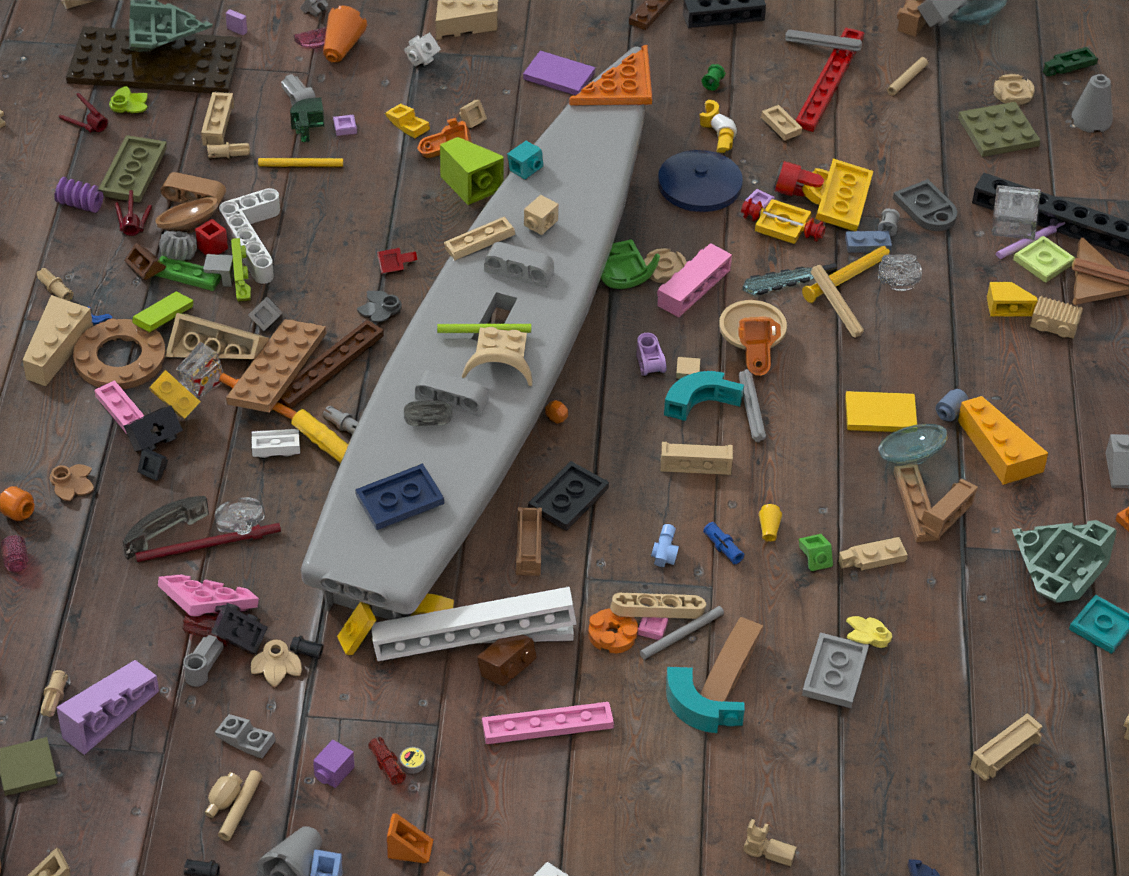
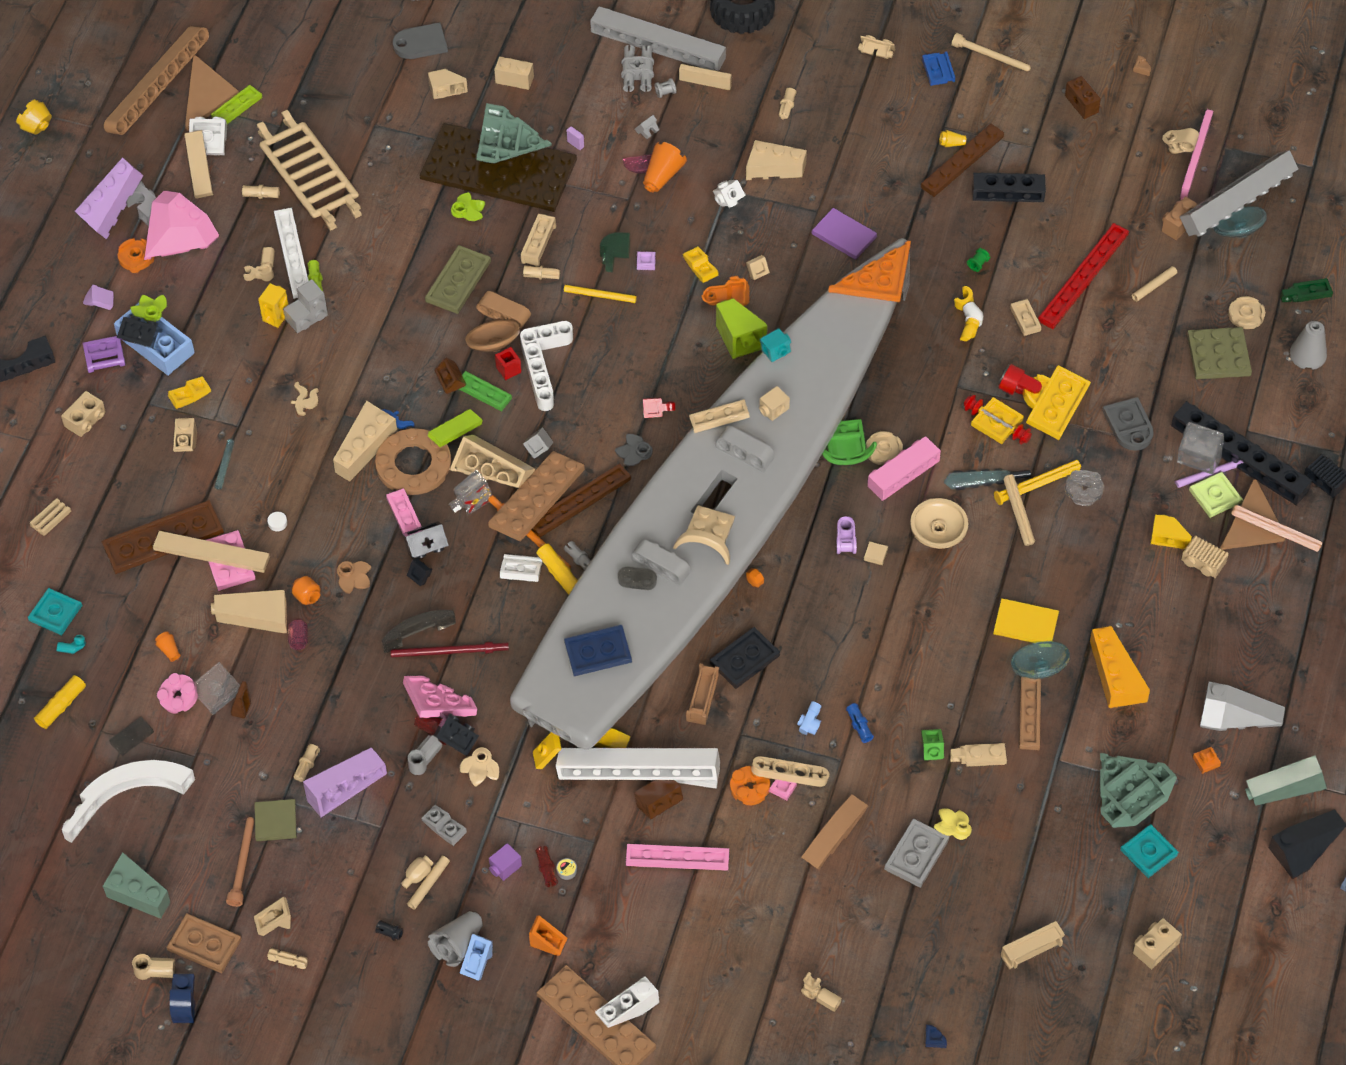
camera: 15 degrees right, 10 degrees up
(54, 284) = (373, 387): tan axle -> none
(78, 195) = (408, 301): medium lavender piece -> none
(95, 120) = (436, 223): dark red plant -> none
(131, 224) = (445, 335): dark red plant -> none
(174, 394) = (447, 513): yellow brick -> none
(177, 245) = (479, 365): light grey gear -> none
(222, 265) = (510, 391): light grey panel -> none
(239, 516) = (477, 632): clear plate -> none
(243, 291) = (525, 400): lime hinge -> none
(296, 89) = (612, 220): light grey piece -> none
(306, 647) = (506, 757): black pin -> none
(475, 328) = (693, 504): lime bar -> none
(681, 632) = (804, 797): light grey bar -> none
(696, 458) = (858, 641): tan container -> none
(696, 709) = (795, 867): teal arch -> none
(699, 388) = (877, 575): teal arch -> none
(700, 180) = (938, 366): dark blue dish -> none
(752, 406) = (919, 598): light grey axle -> none
(757, 337) = (936, 539): orange piece -> none
(761, 196) = (985, 393): lavender tile -> none
(770, 519) = (902, 710): yellow cone -> none
(823, 40) = (1088, 235): light grey axle -> none
(867, 241) = (1066, 451): sand blue plate -> none
(889, 219) = (1090, 434): light grey bush -> none
(949, 406) = (1083, 628): sand blue brick -> none
(949, 508) = (1052, 725): medium nougat container -> none

